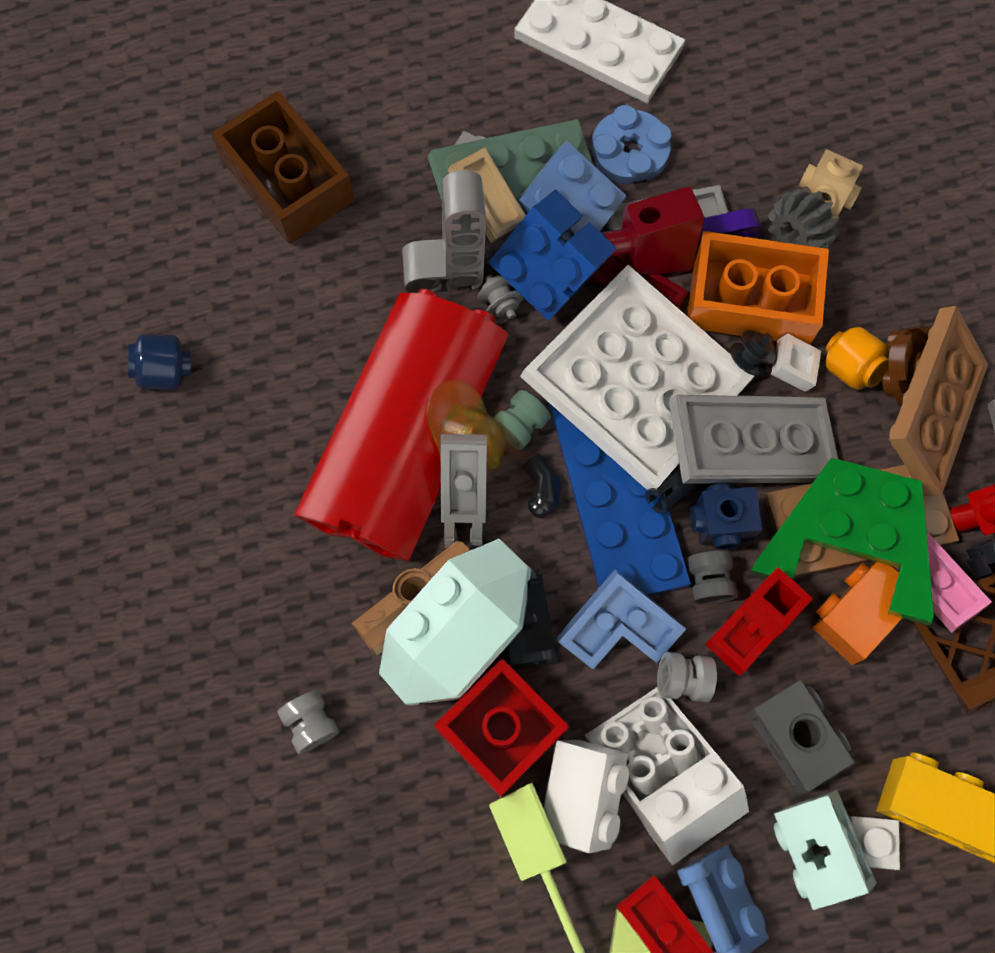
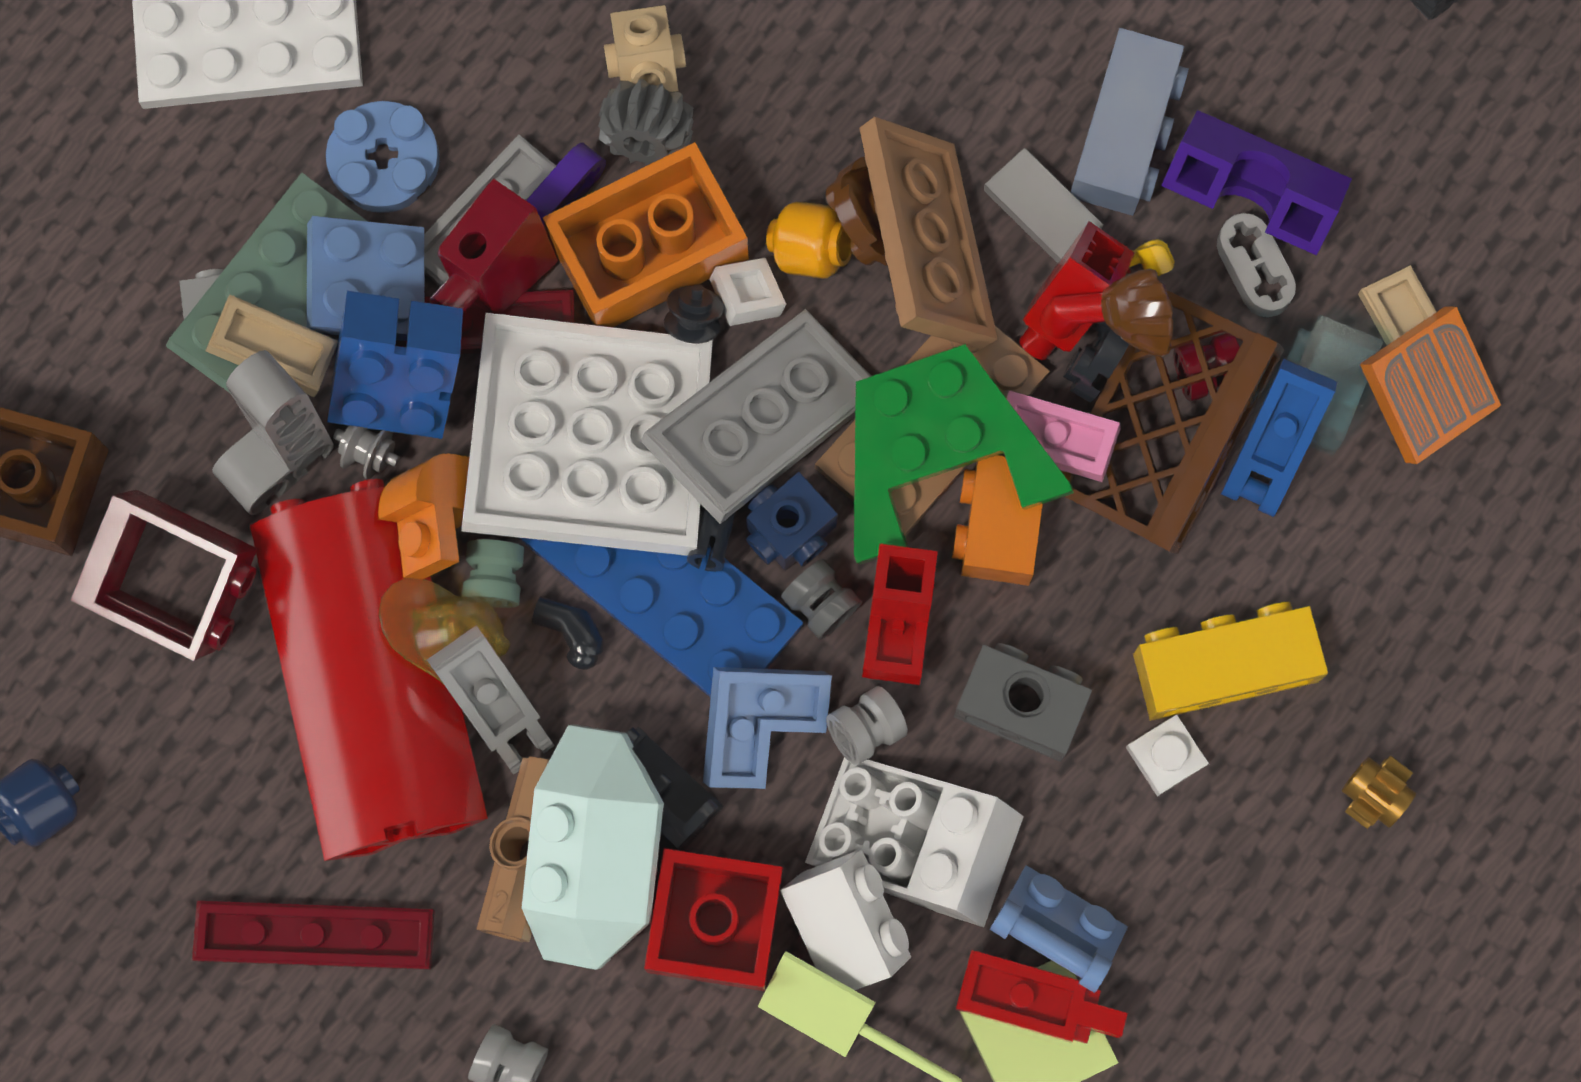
camera: 35 degrees left, 5 degrees up
(256, 557) = (313, 935): none -> dark red tile
(309, 255) = (112, 554): none -> dark red window
(507, 353) = (427, 511): none -> orange brick
(817, 877) = (1152, 805): light aqua brick -> none

